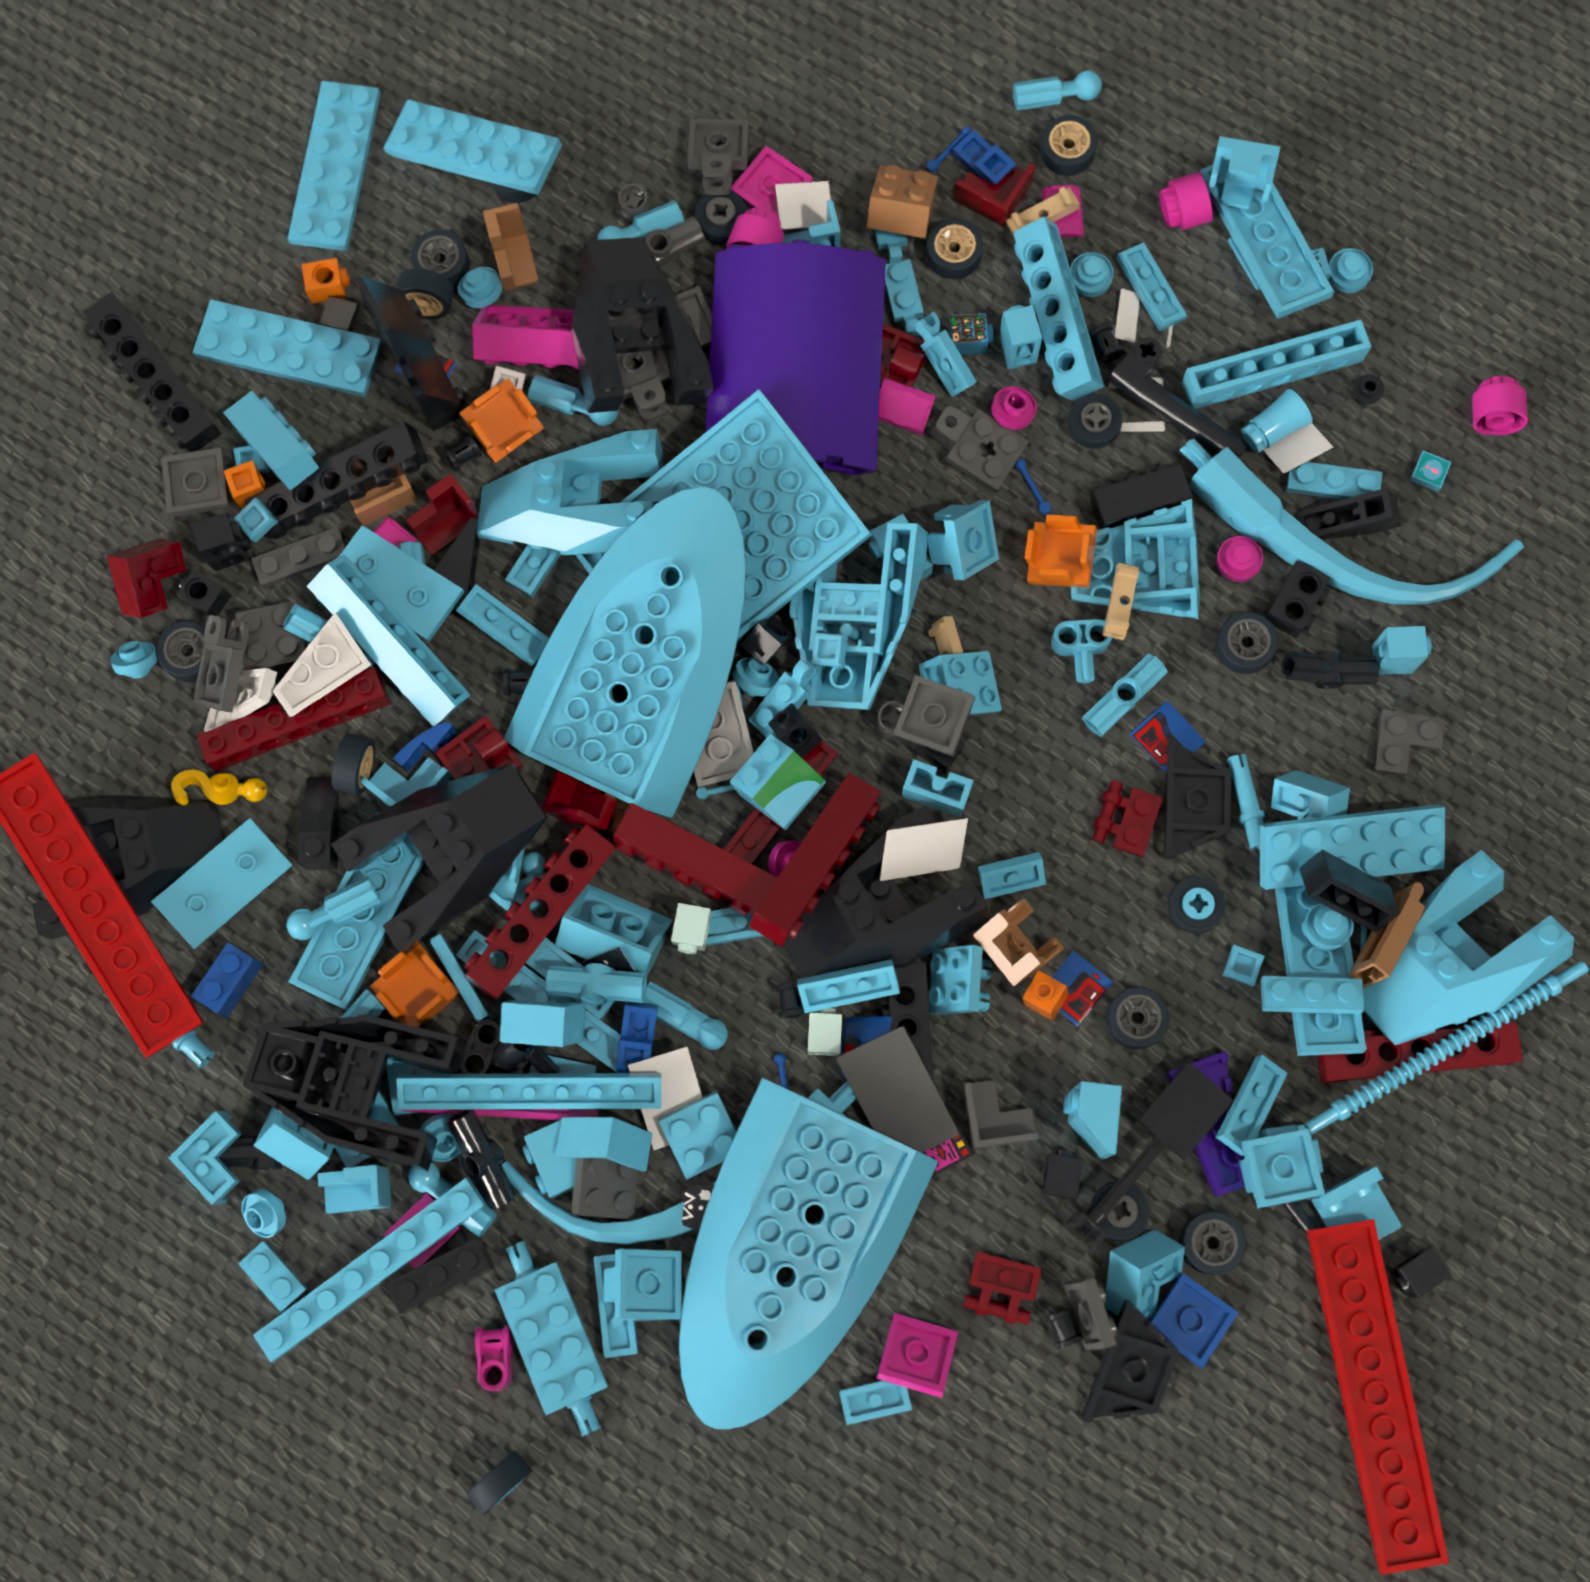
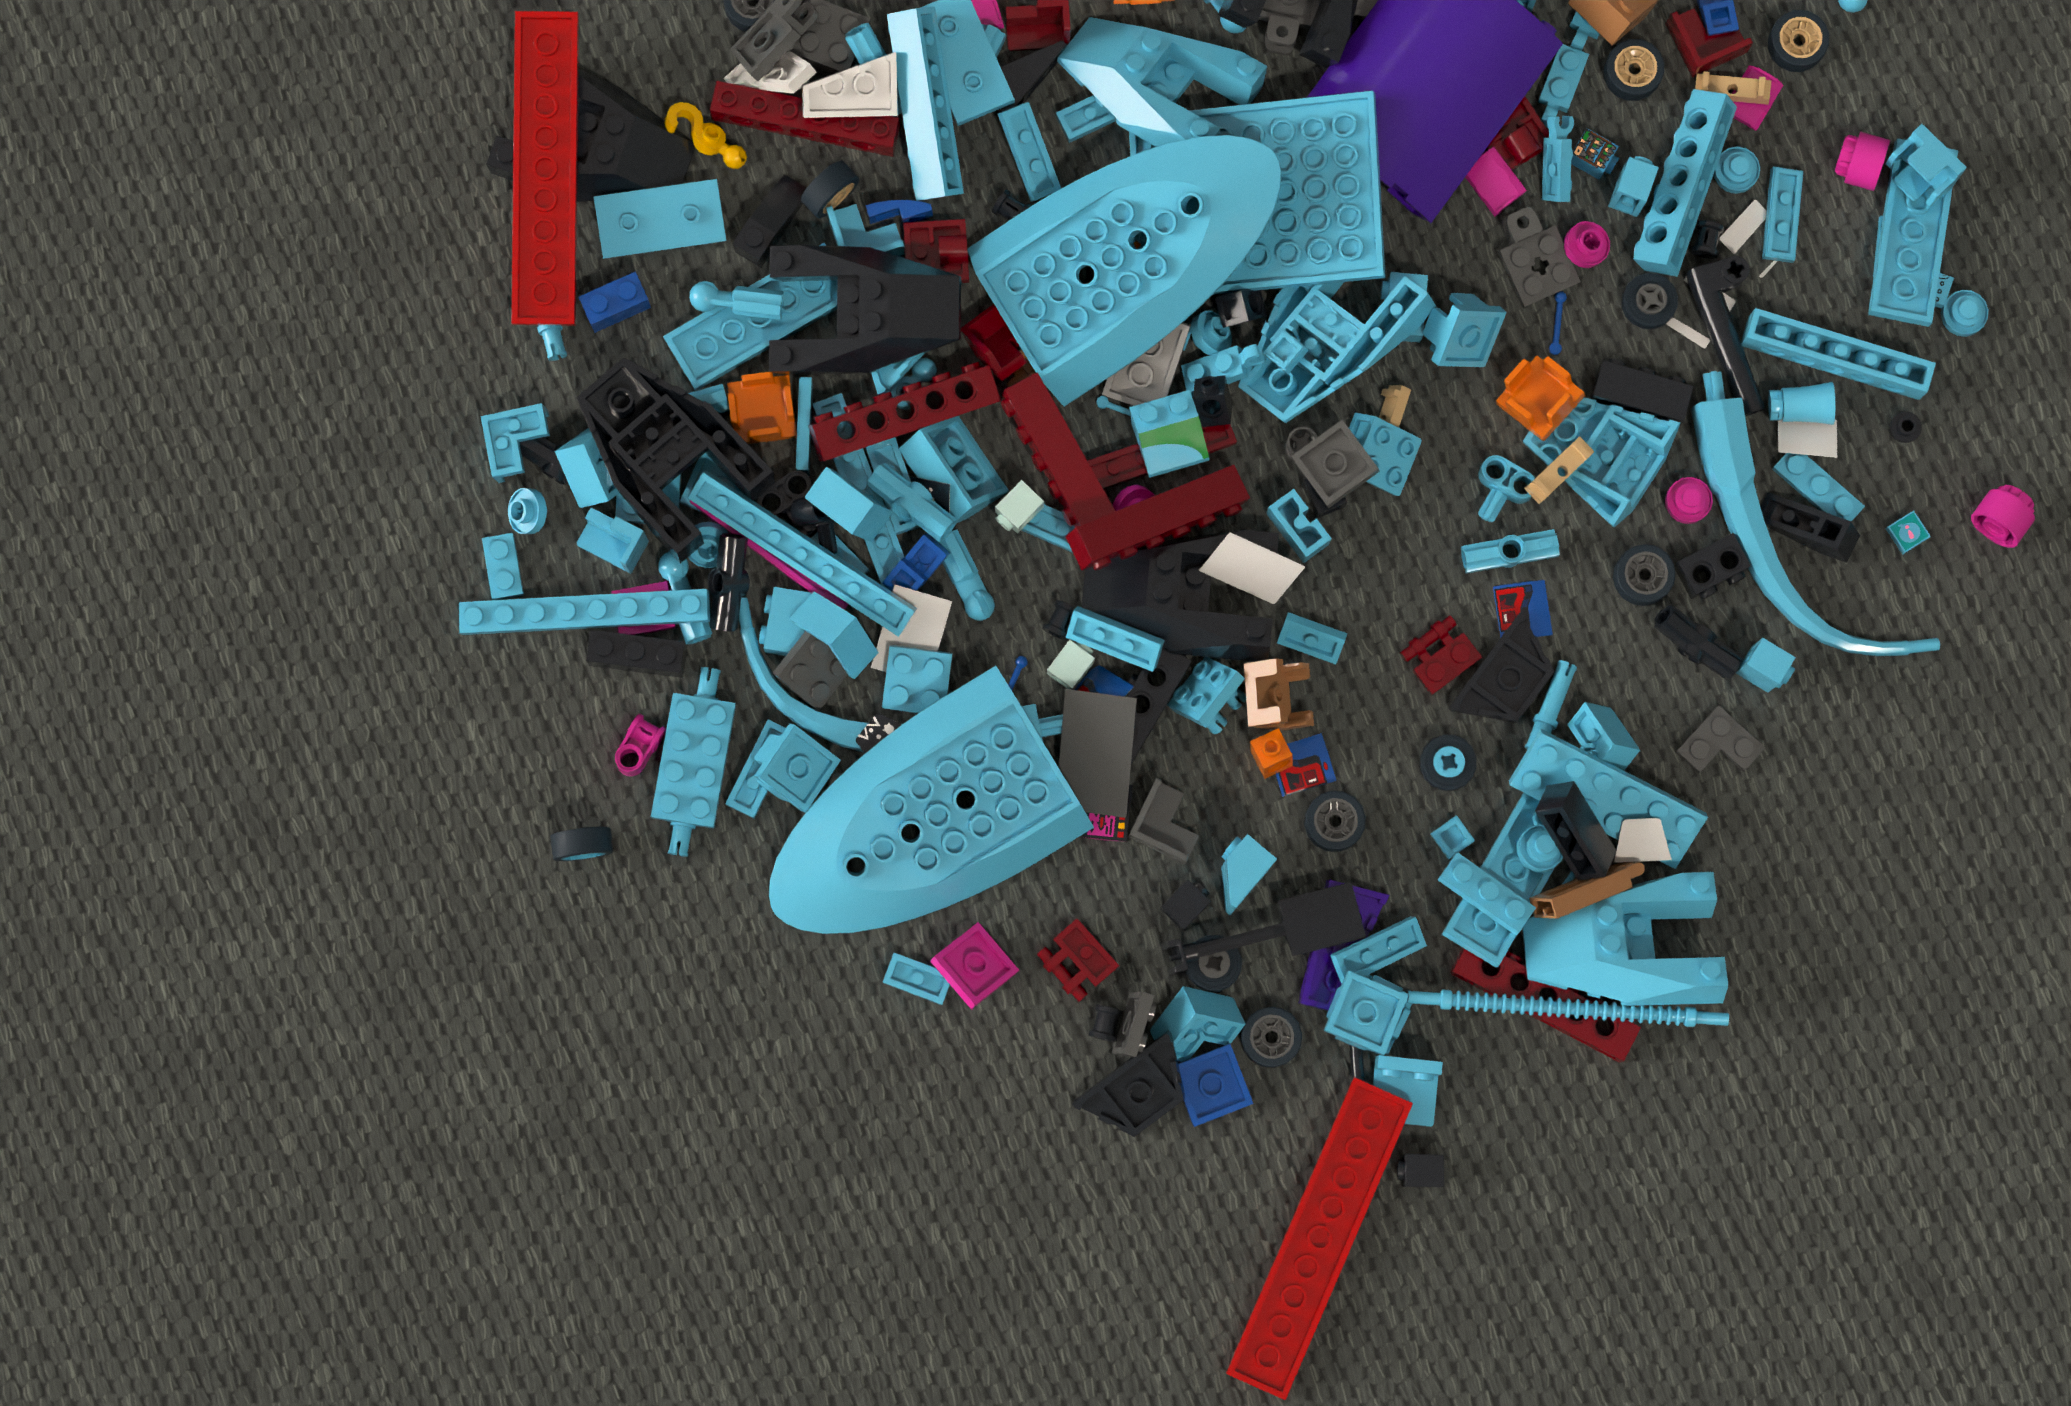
camera: 25 degrees right, 5 degrees up
(1405, 863) = (1642, 841): none -> white sticker

